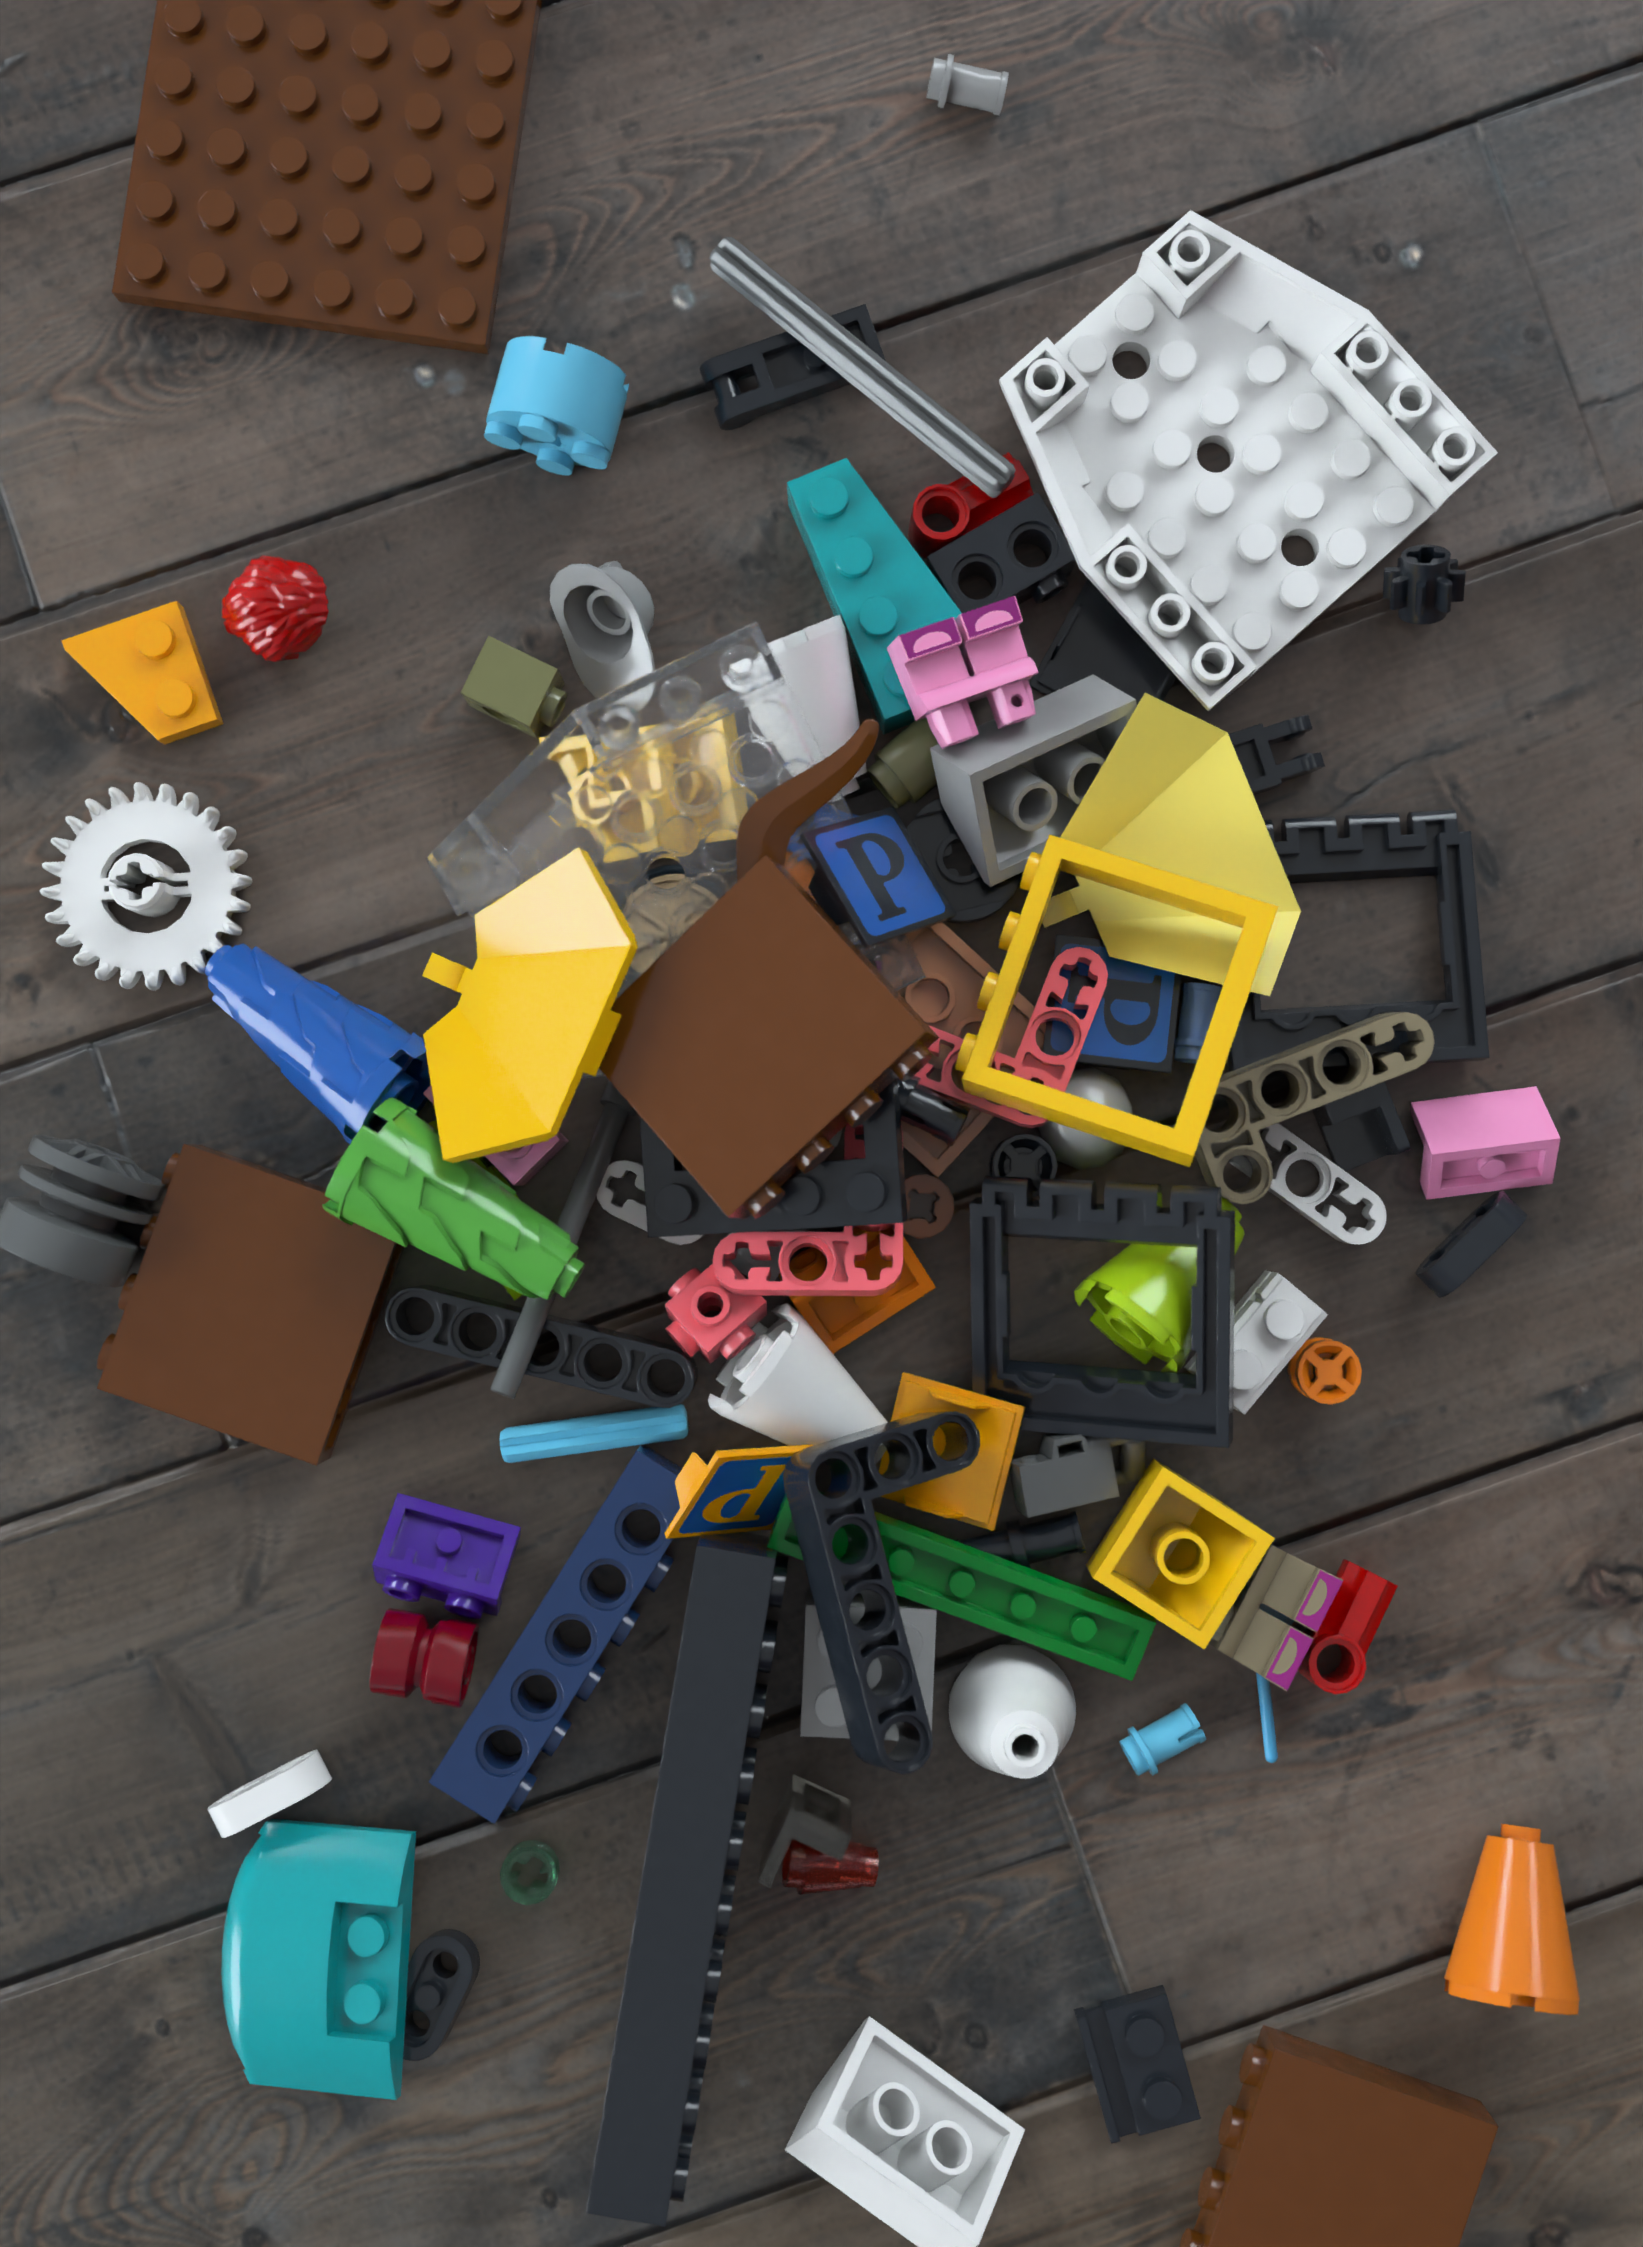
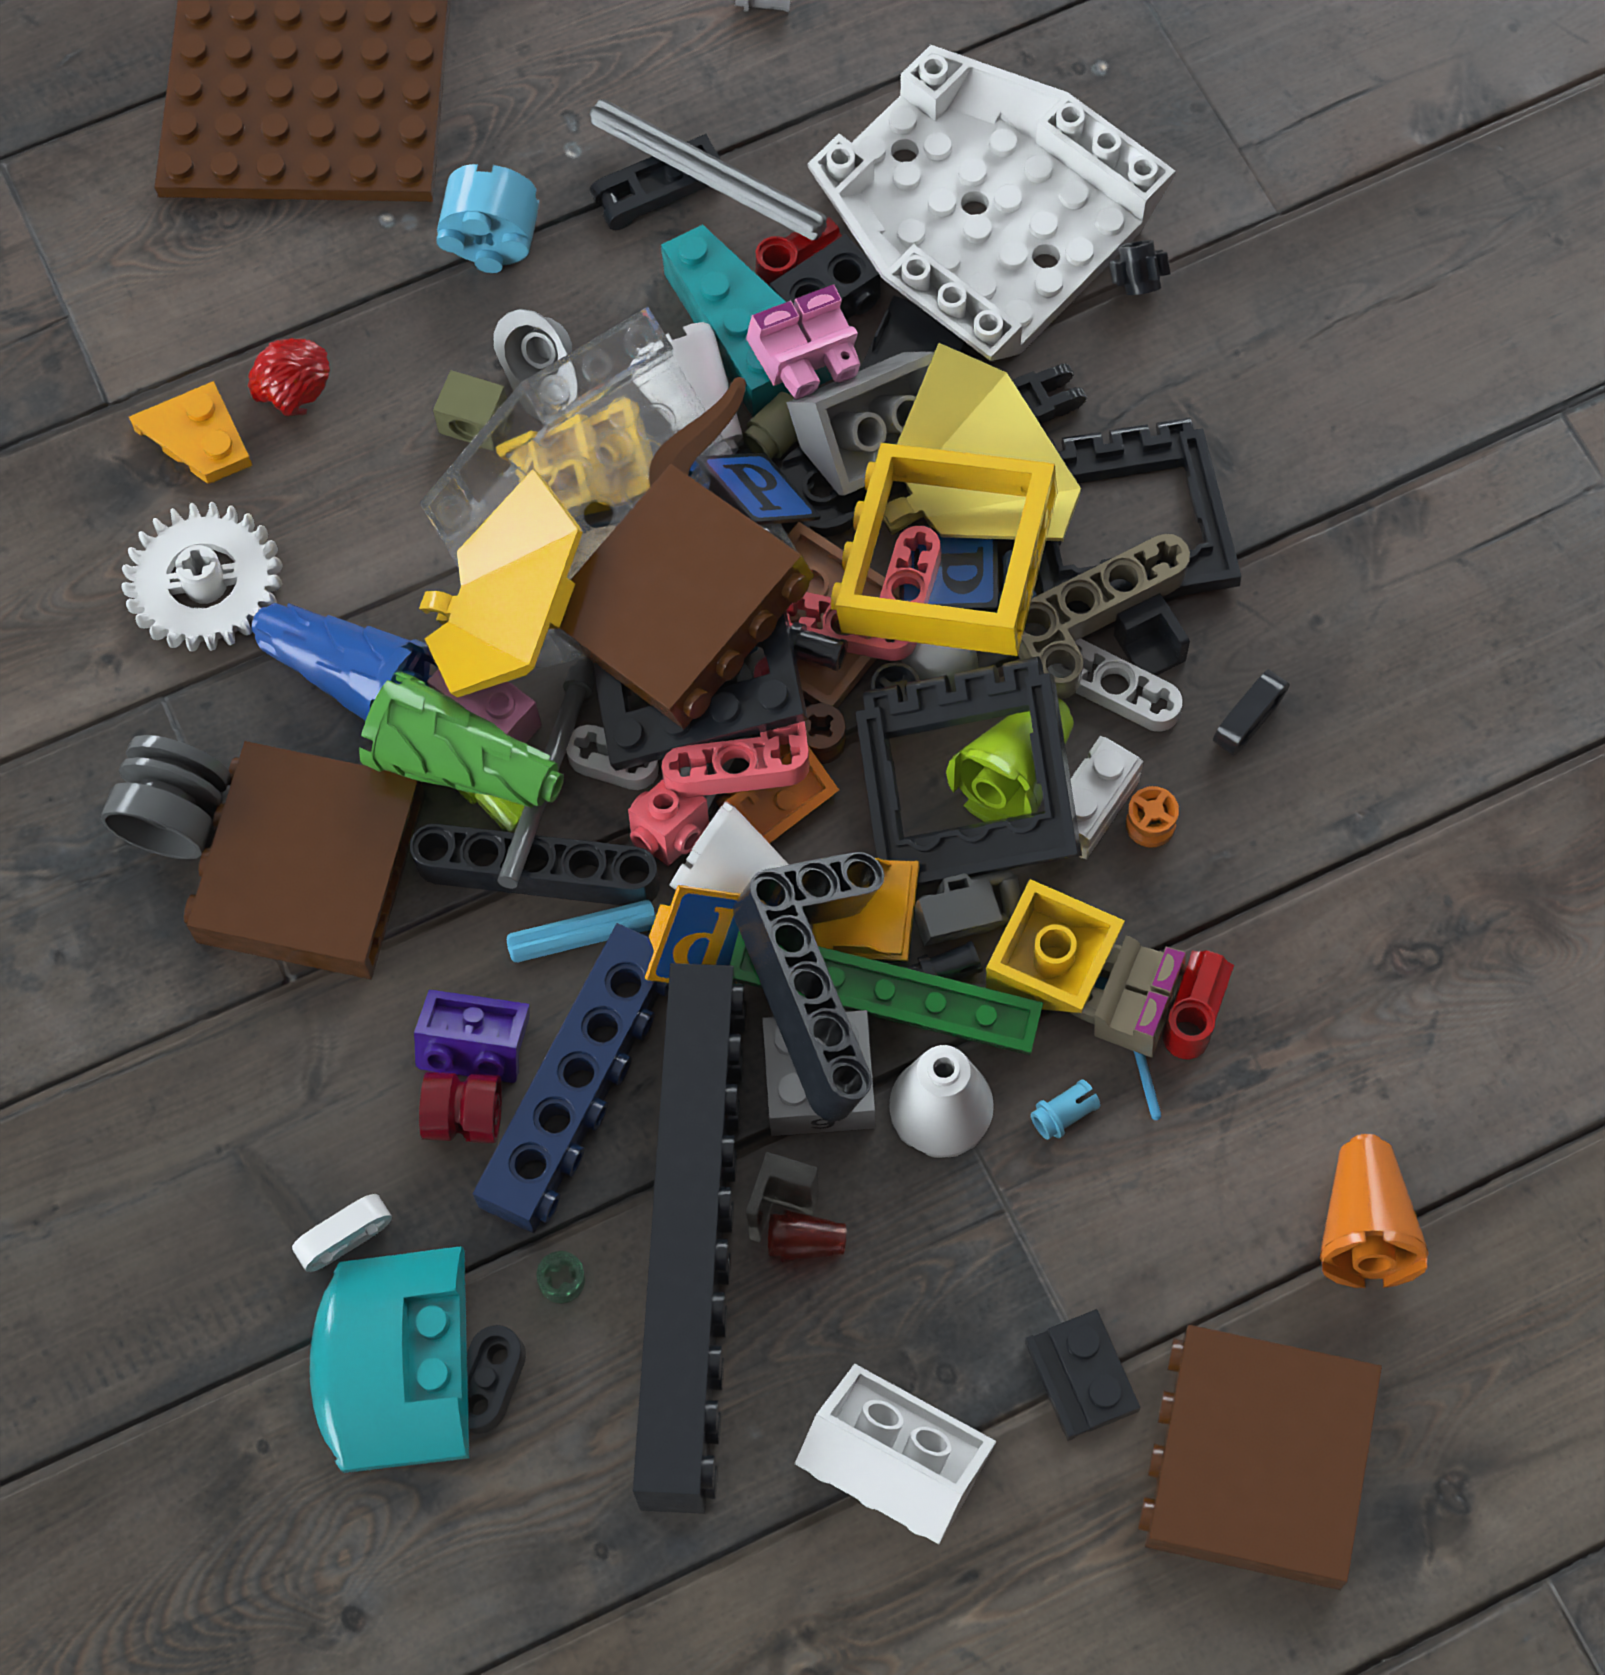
camera: 10 degrees left, 20 degrees down
(1485, 1142) = (1251, 642): bright pink panel -> none

